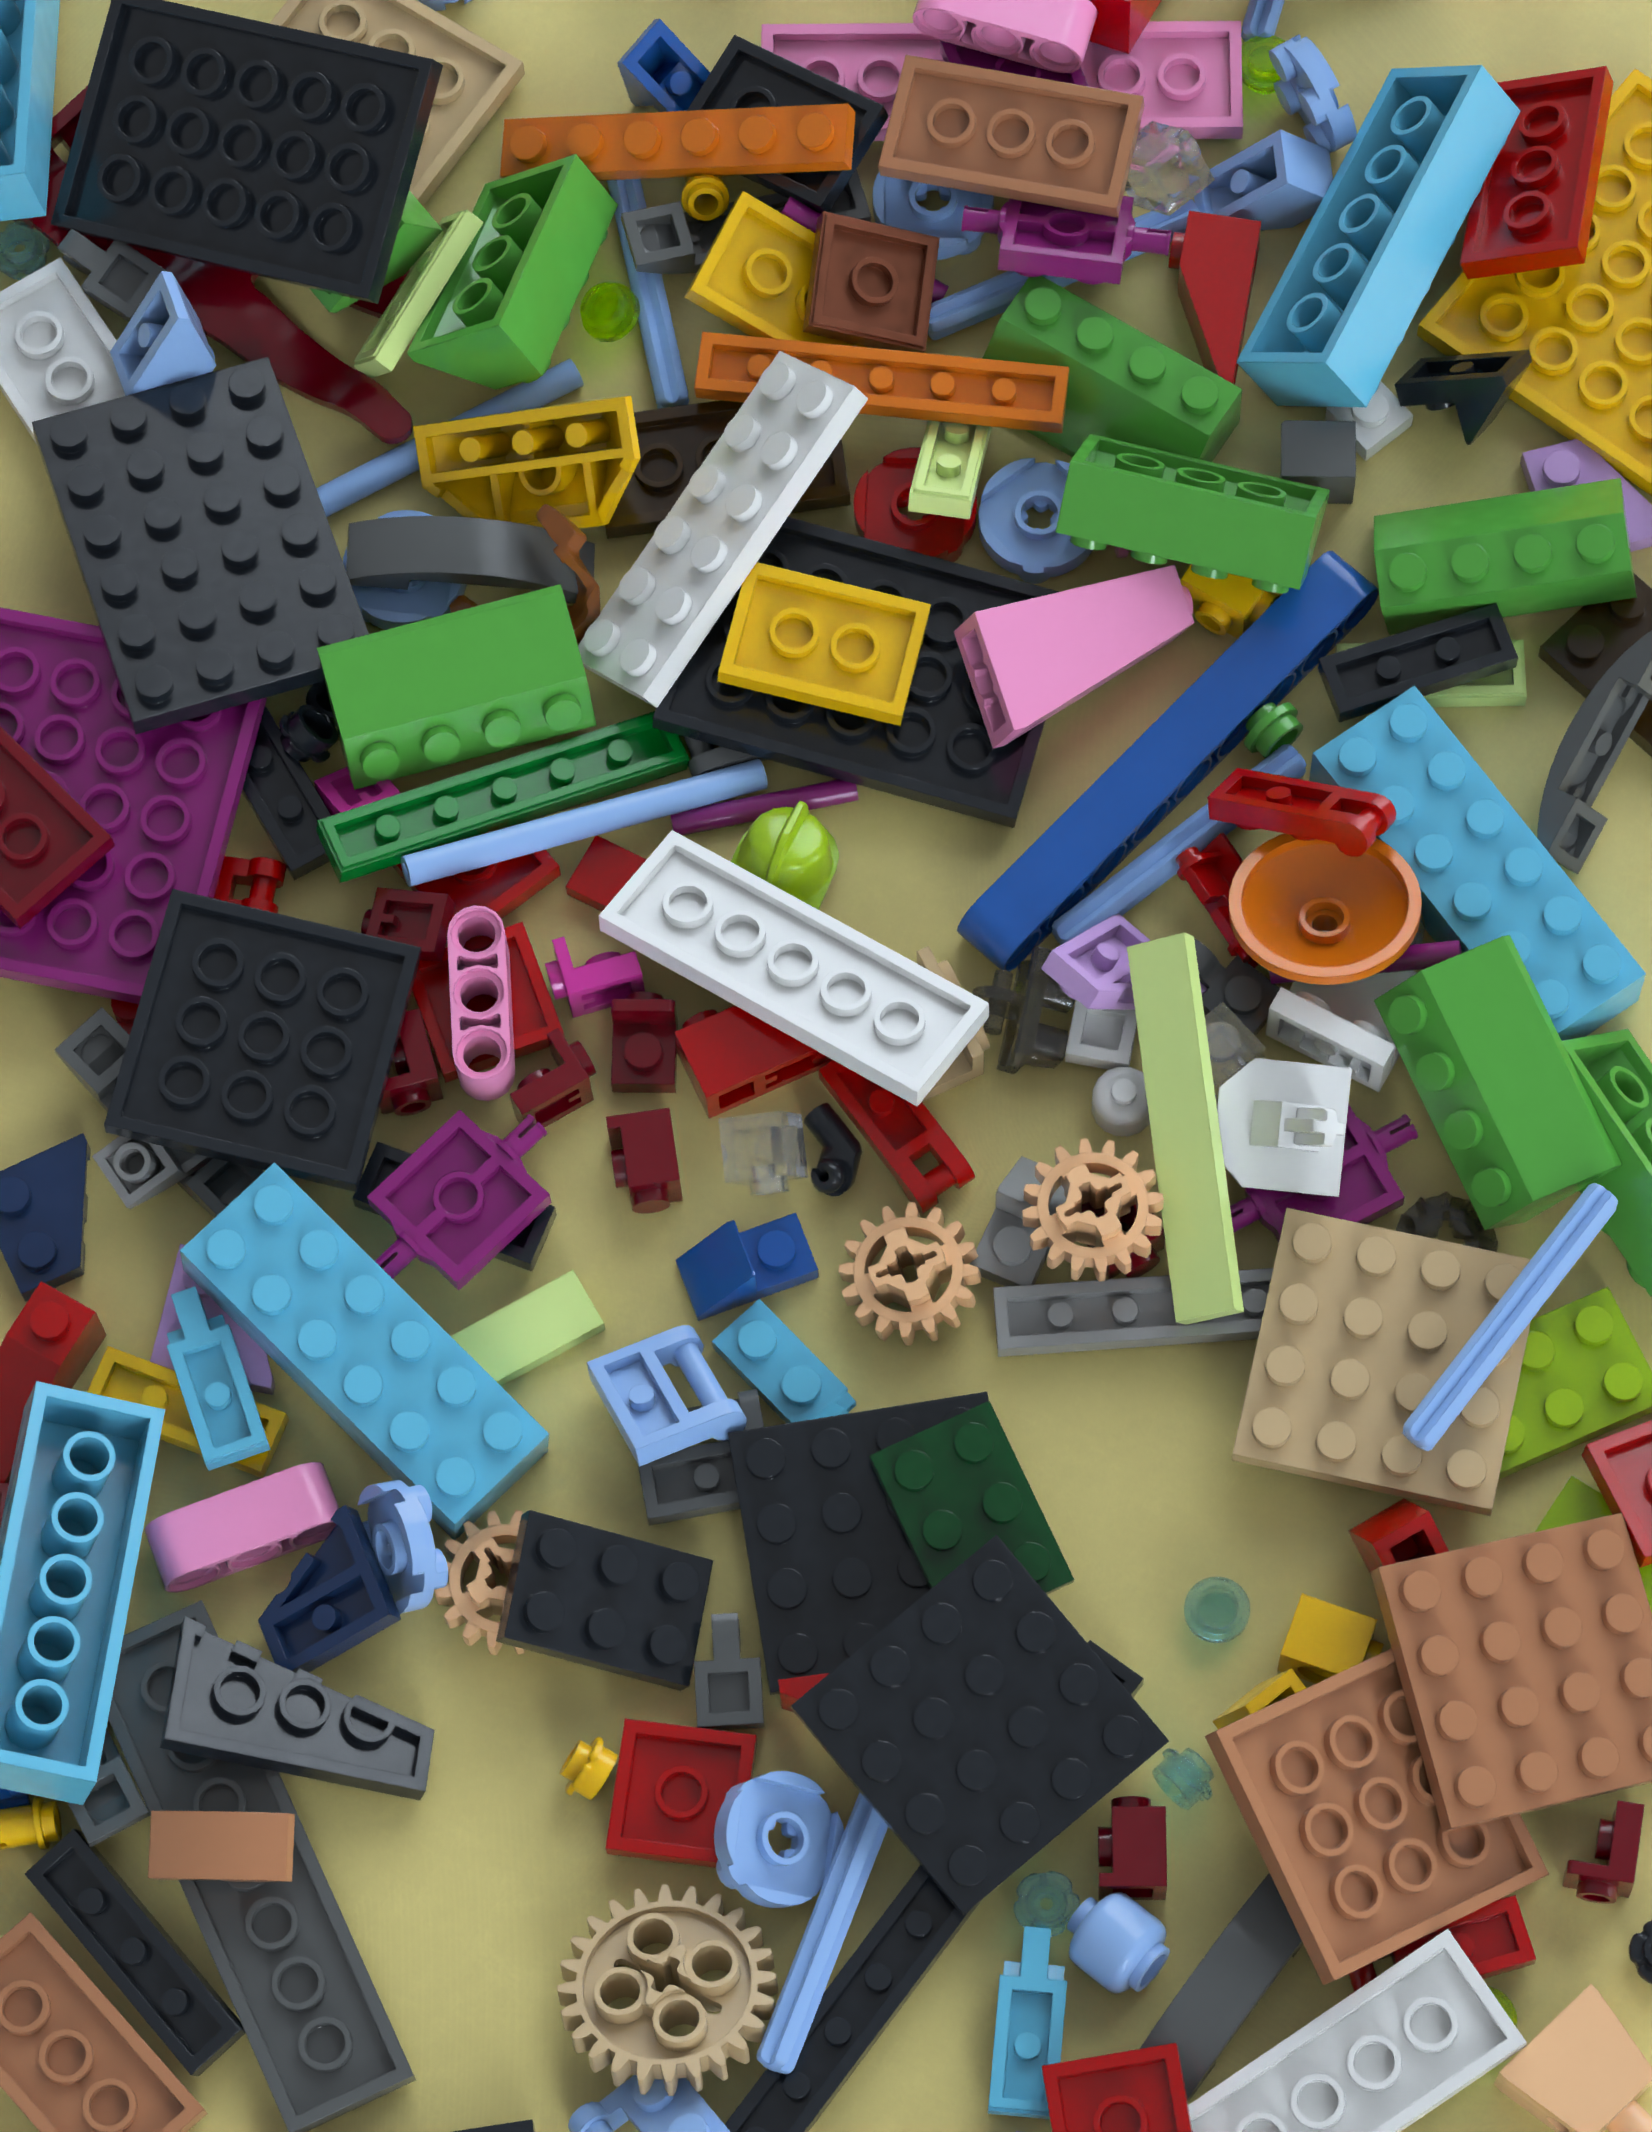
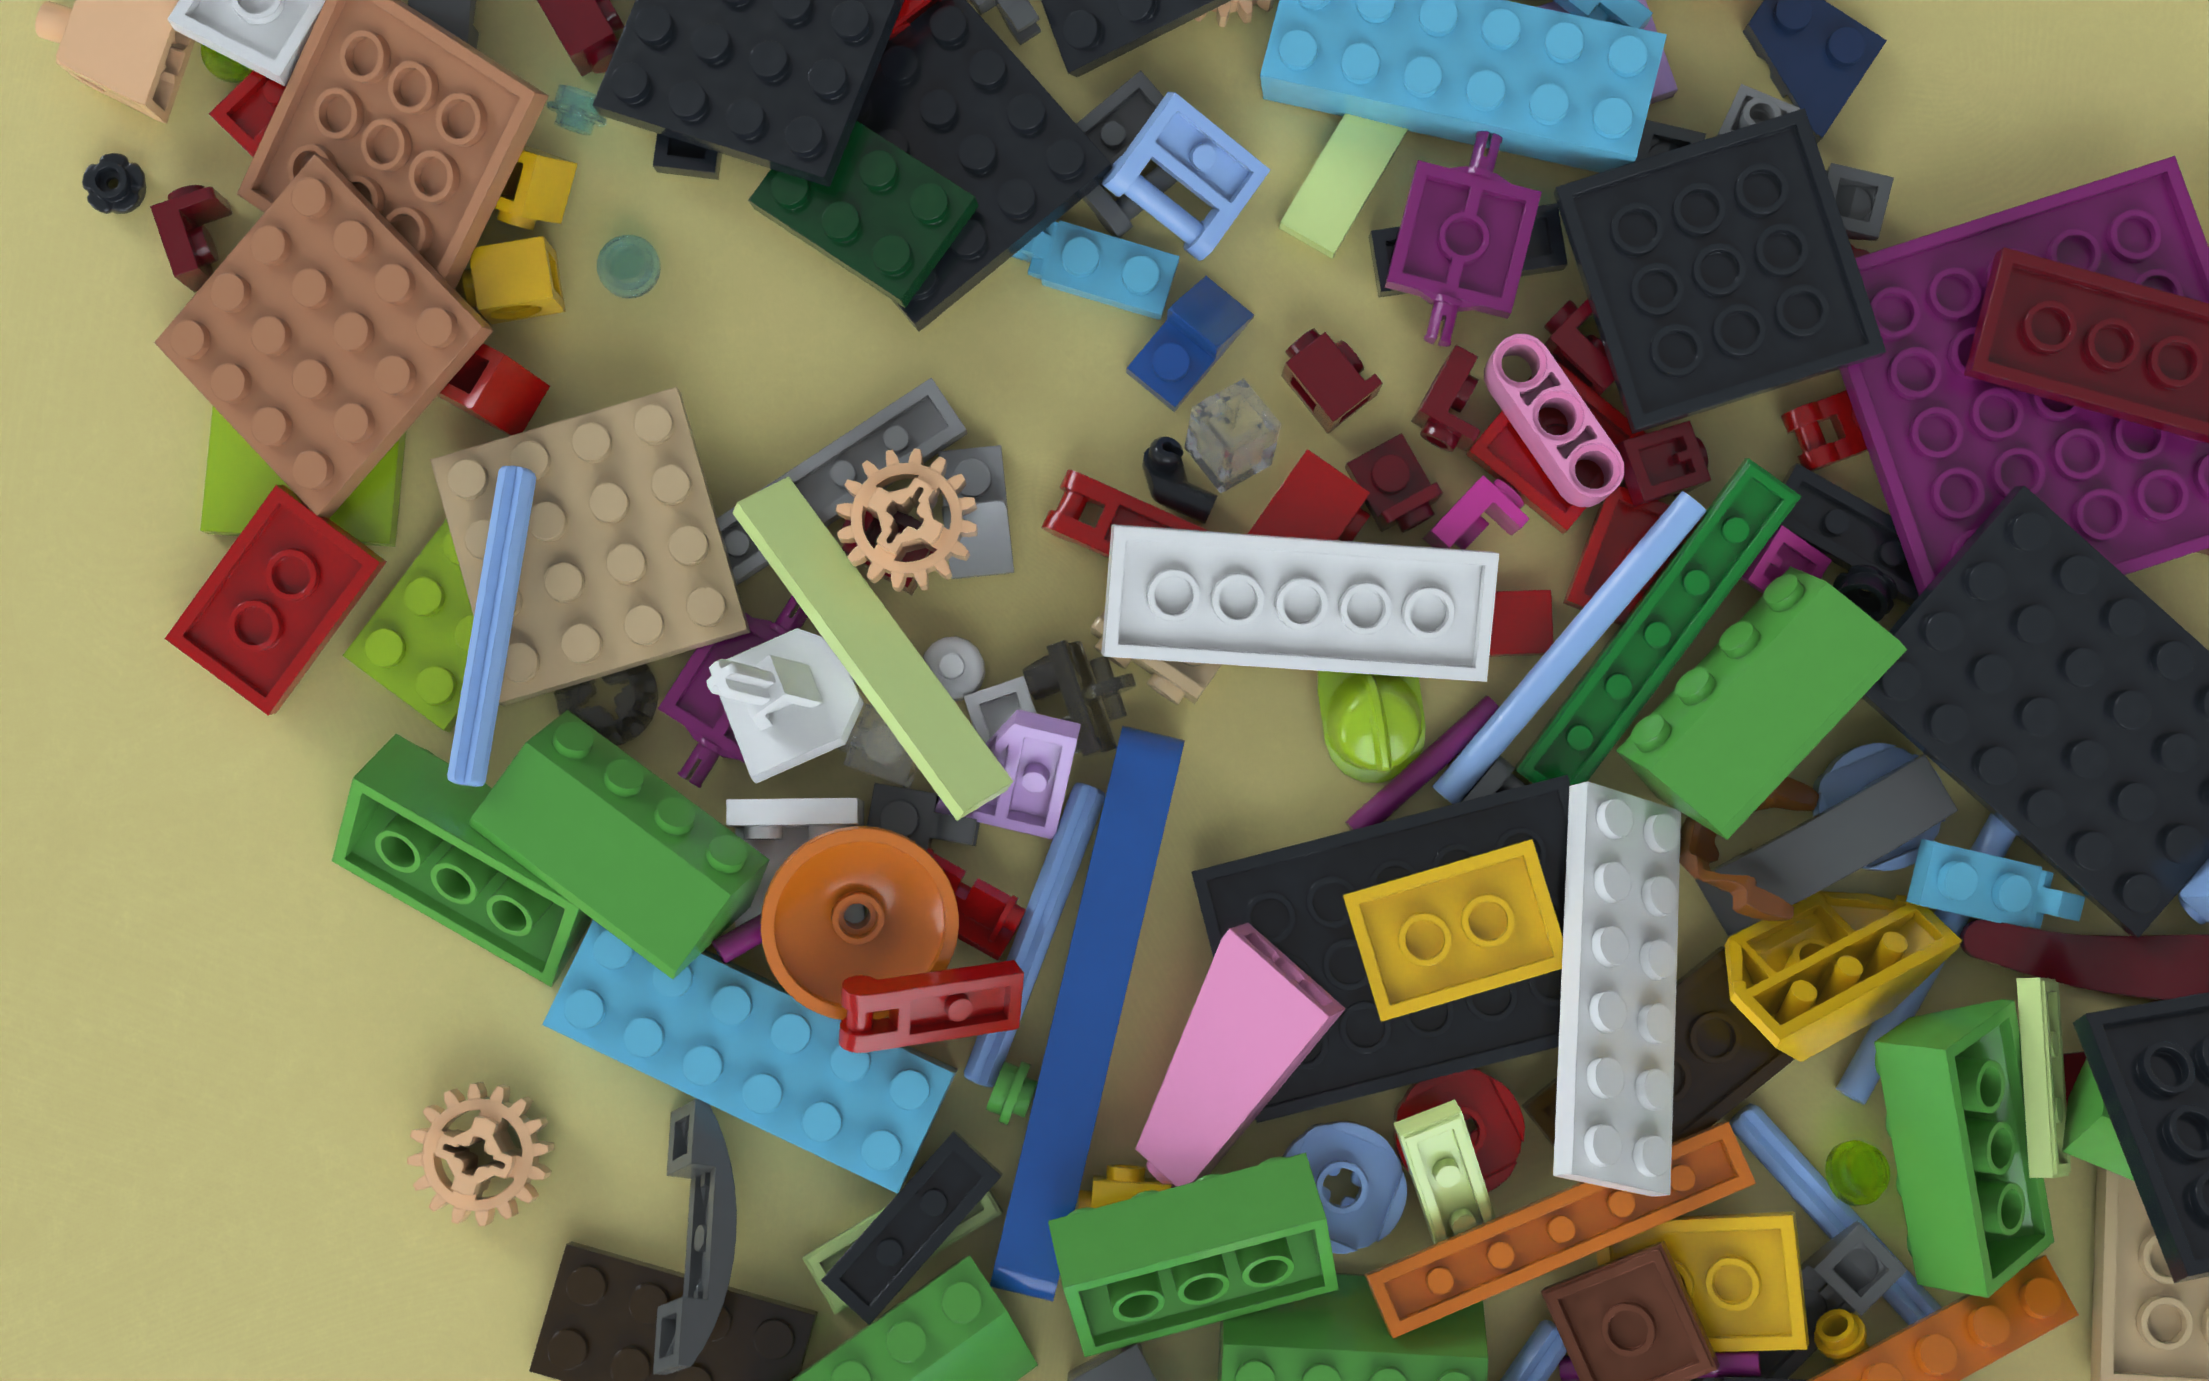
camera: 145 degrees right, 15 degrees up
(361, 458) = (1987, 887): none -> medium azure hinge
(886, 1280) = (1062, 421): light nougat gear -> none

